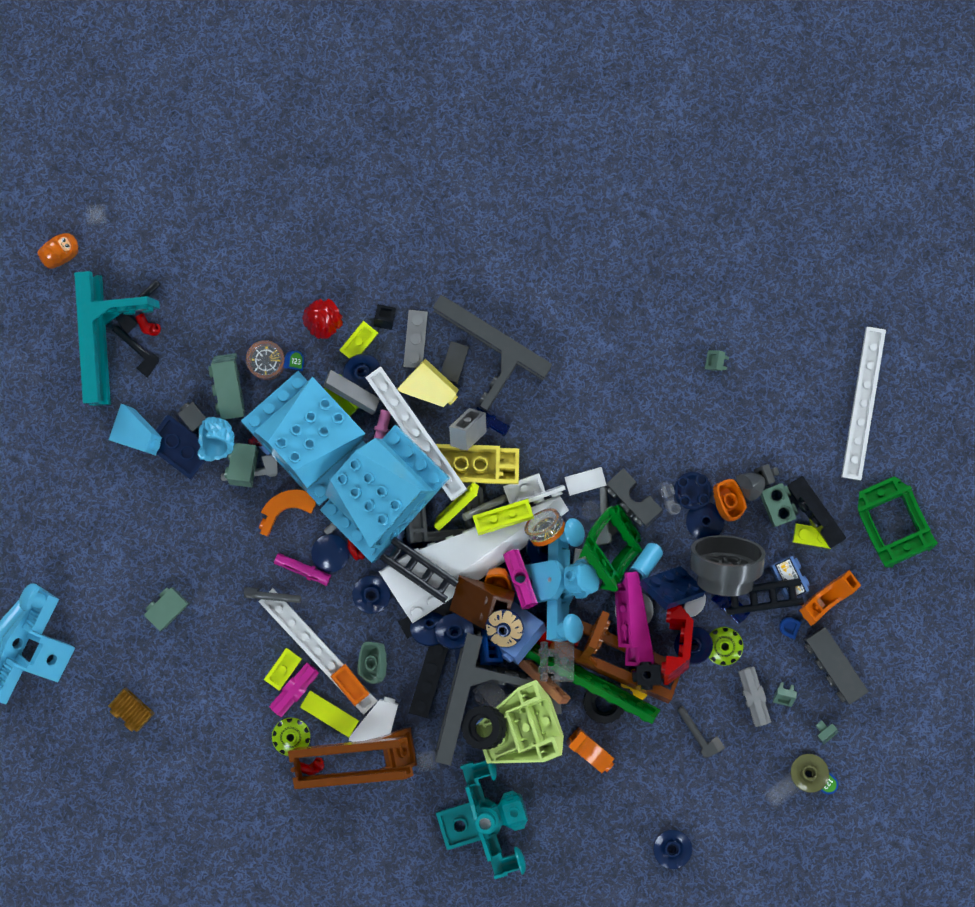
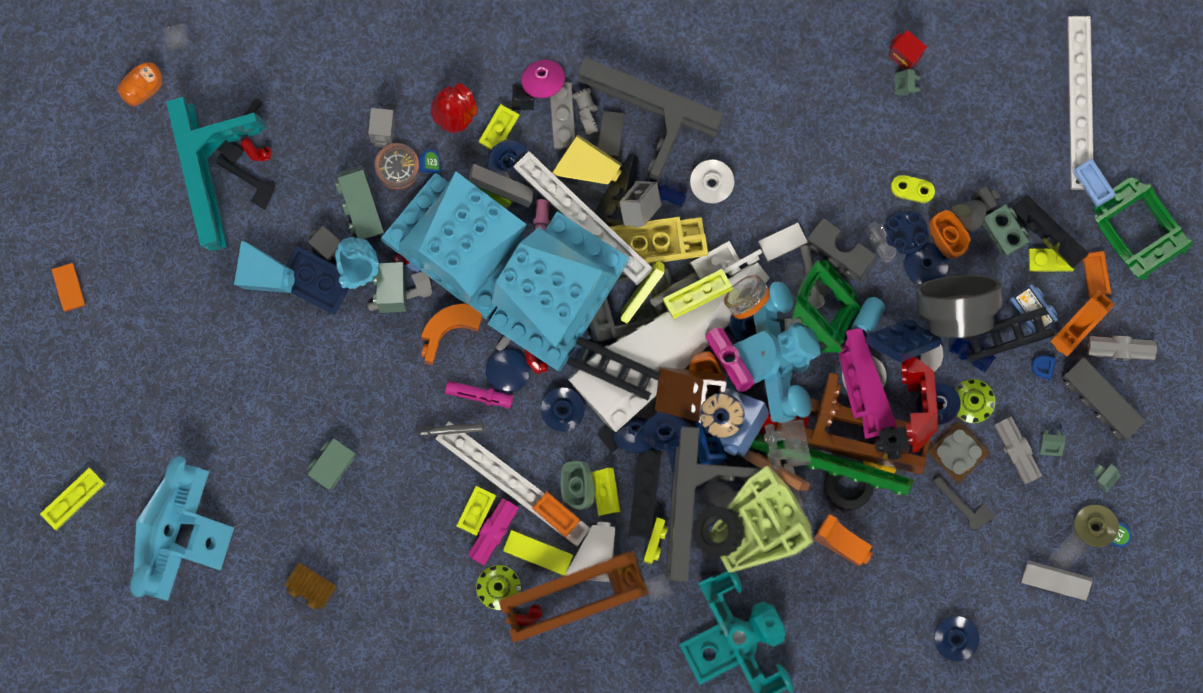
camera: 10 degrees left, 5 degrees down
(257, 324) = (381, 127): none -> light grey brick
(396, 671) = (606, 491): none -> neon yellow plate
(404, 311) = (545, 85): none -> dark pink dish
(427, 729) = (658, 532): none -> neon yellow plate
(436, 335) = (586, 108): none -> light grey connector
(439, 428) = (609, 207): none -> black wing
(529, 409) = (712, 170): none -> white dish
(703, 689) = (958, 452): none -> light grey piece
(705, 454) = (912, 189): none -> neon yellow plate
(721, 333) = (907, 50): none -> red brick
(767, 813) = (1056, 580): none -> light grey tile
(850, 555) = (1096, 273): none -> orange tile
(859, 623) = (1121, 347): none -> light grey piece
(862, 476) = (1094, 183): none -> light blue tile

